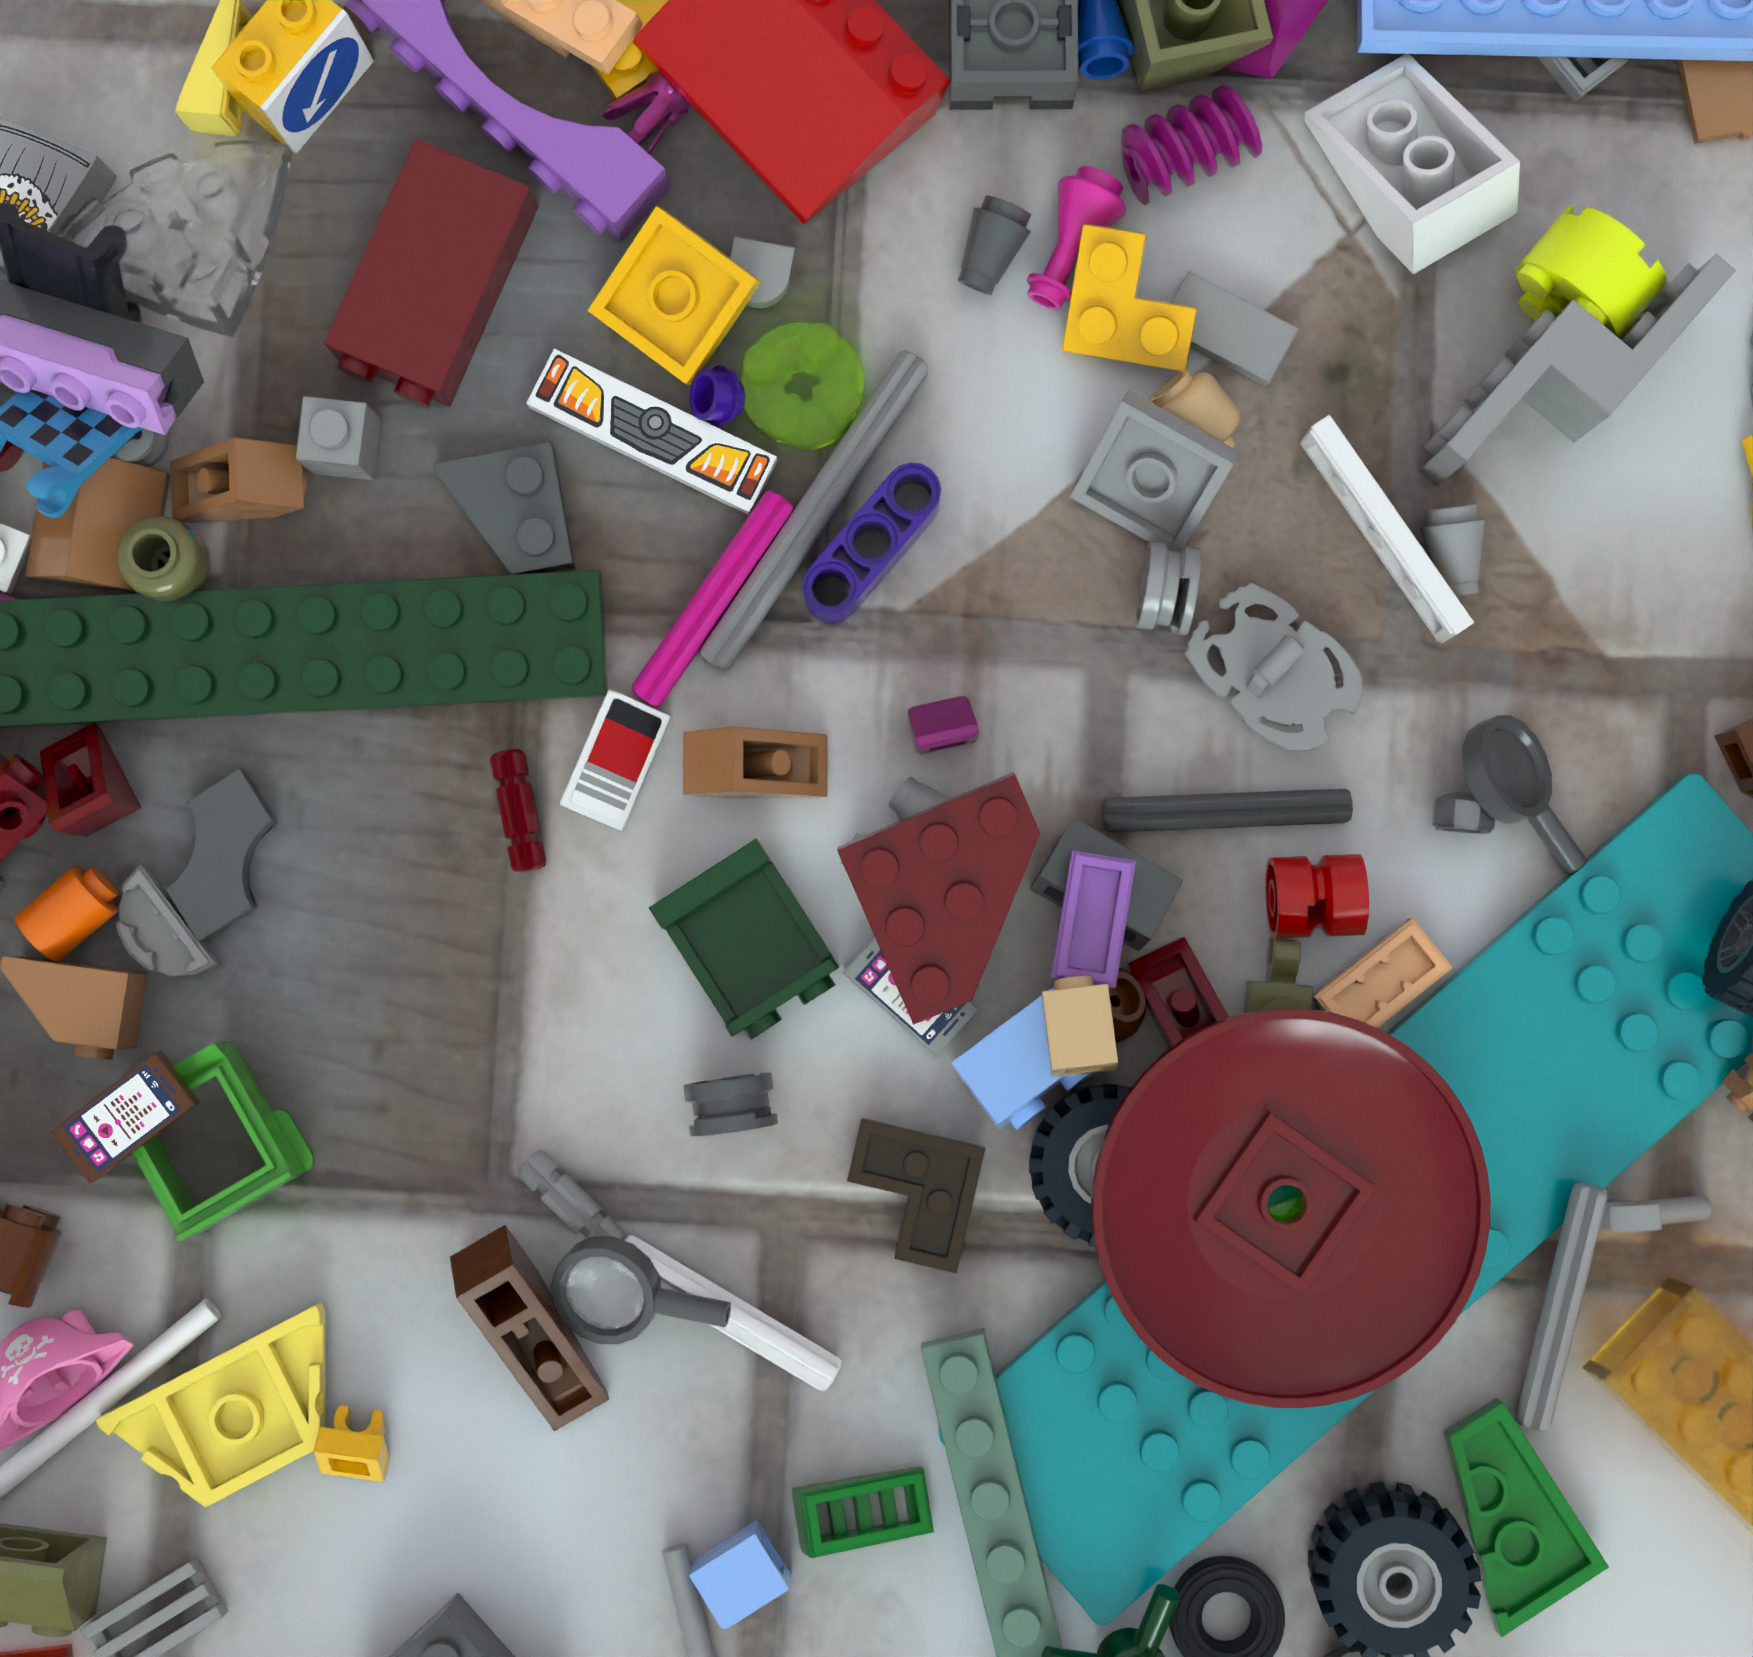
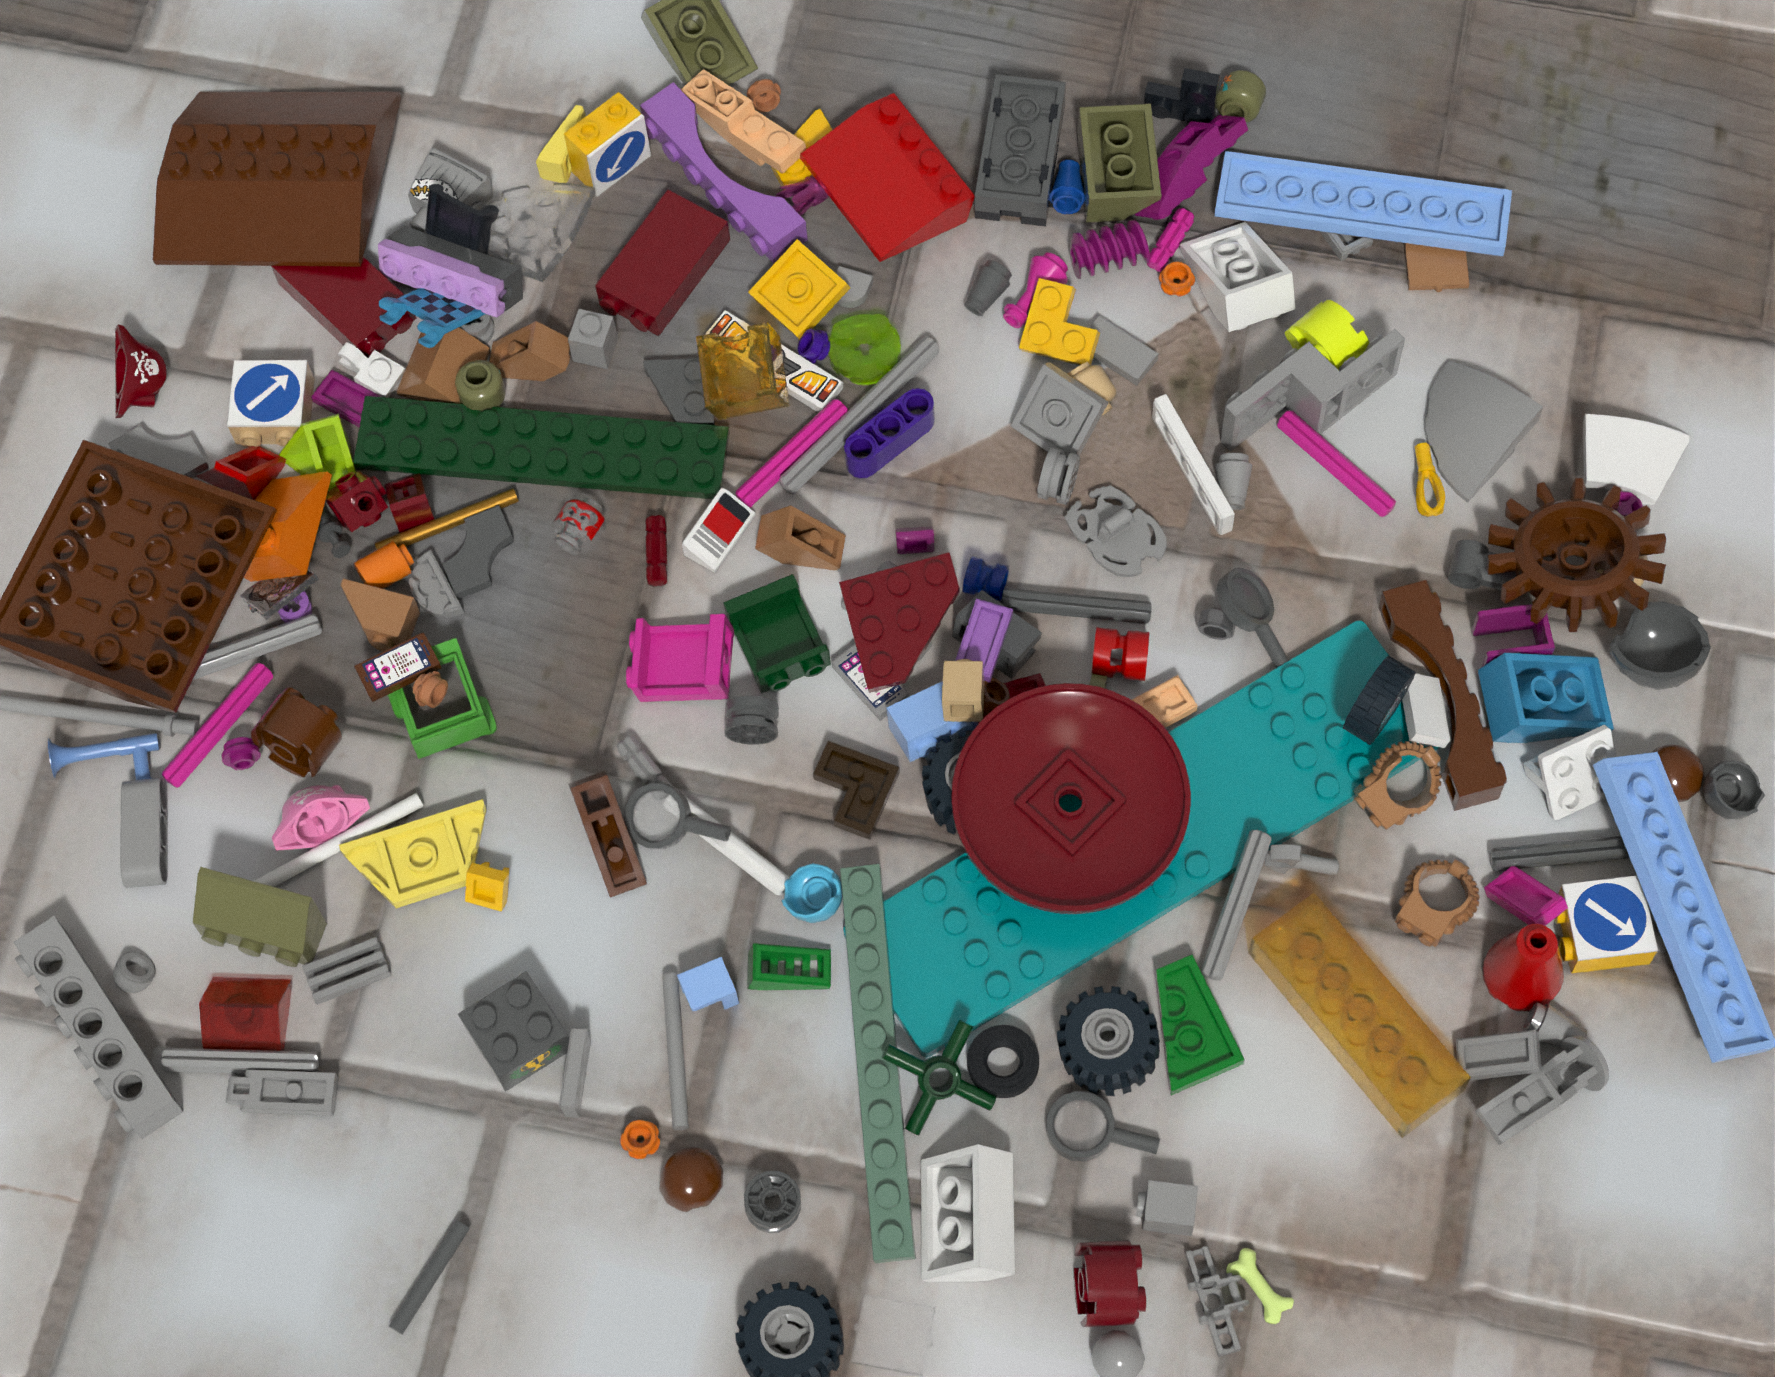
camera: 10 degrees right, 20 degrees down
(159, 806) = (450, 520): none -> pearl gold bar
(187, 1150) = (430, 689): none -> nougat plate
(381, 788) = (579, 526): none -> clear head
(594, 1010) = (681, 661): none -> dark pink panel
(606, 477) = (743, 372): none -> clear yellow piece
(880, 1391) = (813, 893): none -> medium azure hair
(1074, 789) = (977, 578): none -> clear blue wheel
(1288, 104) = (1170, 239): none -> dark pink axle
(1314, 167) = (1178, 271): none -> orange plate
(1618, 489) = (1336, 463): none -> dark pink axle

